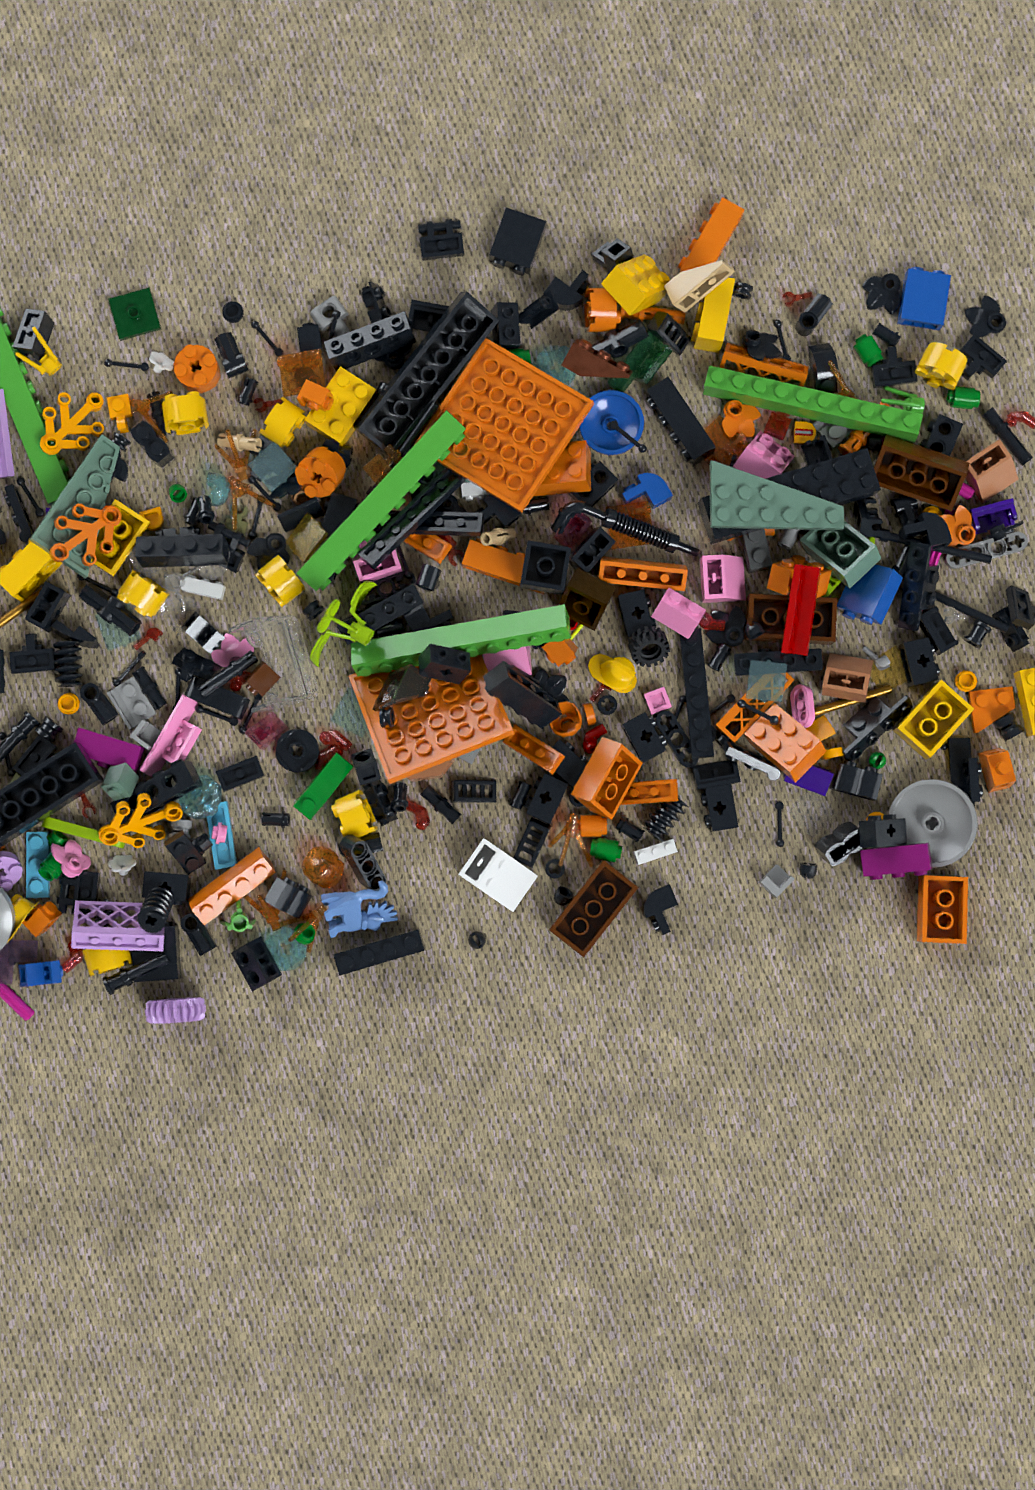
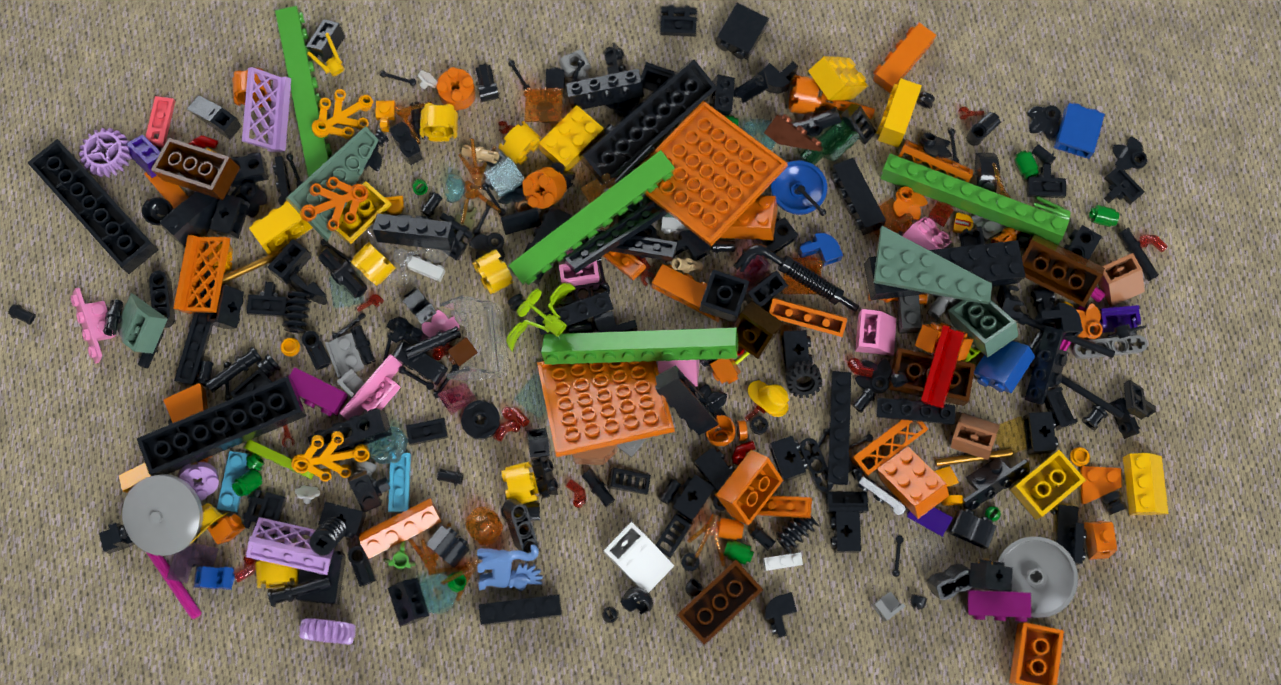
camera: 10 degrees right, 10 degrees down
(71, 858) = (263, 479): bright pink plate -> none
(120, 781) = (320, 419): sand green brick -> none
(134, 314) = (413, 39): dark green plate -> none
(205, 512) = (440, 205): black pin -> none
(219, 833) = (398, 479): bright pink plate -> none
(233, 312) = (495, 50): black plate -> none
(247, 391) = (494, 115): black pin -> none
(306, 537) = (522, 239): clear yellow piece -> none
(315, 396) = (551, 123): orange brick -> none
(322, 786) = (497, 453): green slope -> none
(386, 717) = (564, 400): black bush -> none
(400, 801) = (562, 478): black pin -> none
(401, 687) = (583, 377): clear smoke slope -> none
(428, 578) = (621, 290): black piece -> none
(444, 663) = (623, 362): black brick -> none
(498, 915) = (635, 594): none -> black hair
(534, 749) = (688, 452): orange tile -> none
(612, 254) = (819, 50): black brick -> none
(657, 701) = (804, 428): bright pink plate -> none
(678, 613) = (834, 354): bright pink brick -> none
(694, 284) = (888, 83): tan slope -> none
(766, 681) = (903, 425): clear light blue piece -> none
(773, 719) = (905, 459): black hinge -> none
(802, 708) = (933, 455): bright pink plate -> none
(881, 663) = (1007, 428): light grey hand -> none
(941, 366) = (1088, 185): yellow brick -> none
(954, 615) = (1073, 397): clear hand -> none

